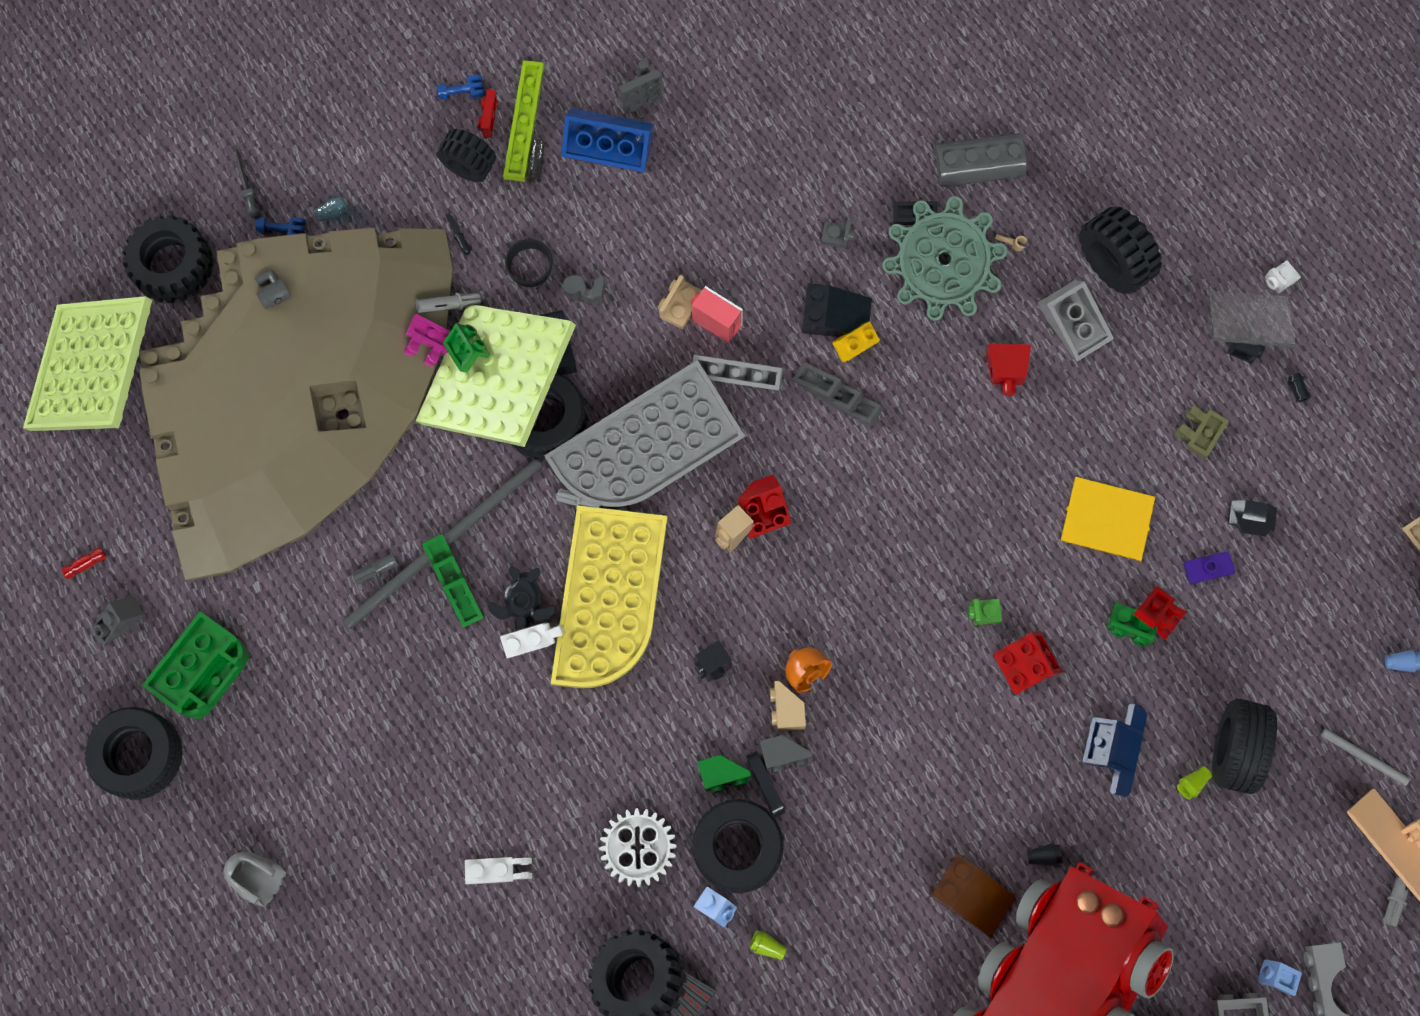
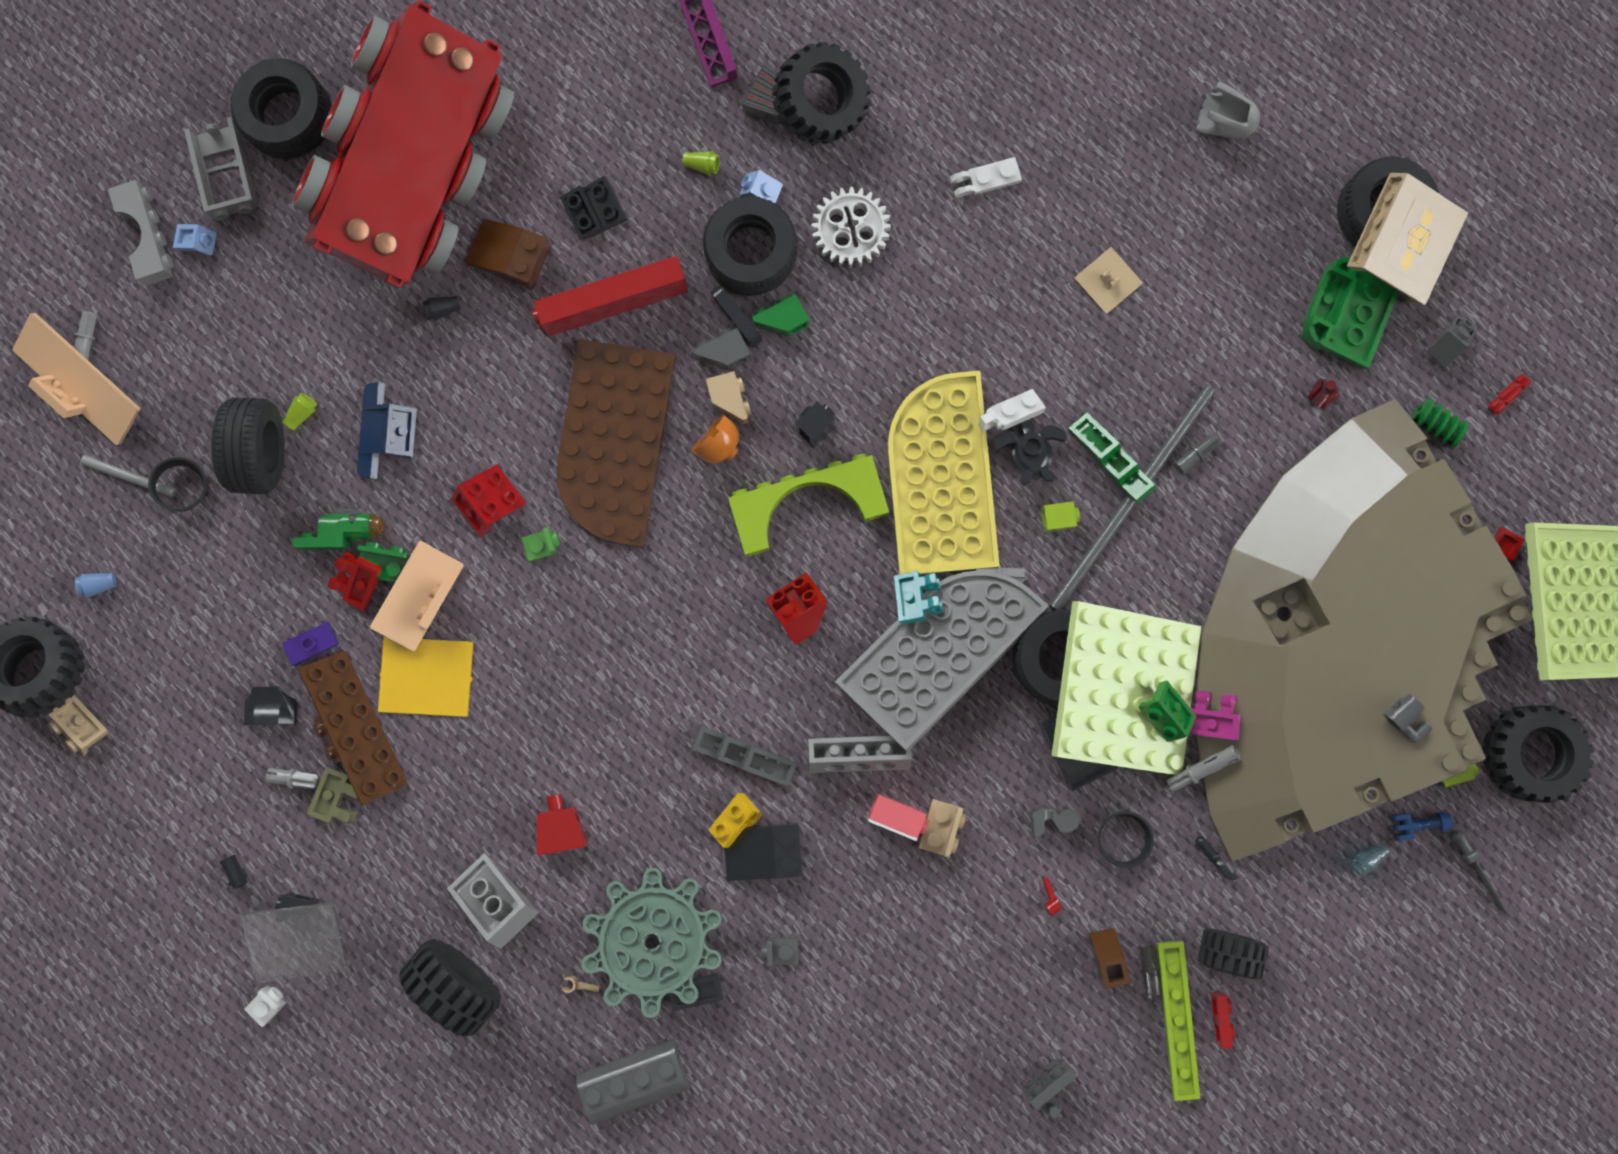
camera: 170 degrees right, 10 degrees up
(129, 712) = (1408, 237): none -> tan panel
(134, 433) = (1508, 542): none -> red plate
(154, 549) = (1440, 422): none -> green piece
(246, 597) = (1324, 393): none -> dark red arm
(409, 746) = (1108, 280): none -> tan piece
(473, 86) = (1252, 1052): blue hinge -> none
(512, 537) = (1060, 516): none -> lime brick
(567, 174) = (1109, 958): none -> reddish brown slope
(602, 224) = (1053, 906): none -> red hand
(607, 139) = (1074, 1016): blue slope -> none
(662, 492) = (910, 596): none -> plate
(688, 609) = (854, 479): none -> lime arch
(733, 529) = (824, 571): tan slope -> none
(880, 823) = (610, 296): none -> red brick
(881, 923) = (593, 208): none -> black slope
(901, 697) = (614, 438): none -> reddish brown plate
(1104, 586) = (416, 596): none -> light nougat bracket
(1170, 663) = (339, 529): none -> green plate
(1180, 485) = (351, 728): none -> reddish brown bracket
(1238, 454) = (291, 778): none -> light grey axle
(1322, 711) = (172, 462): none -> black tyre

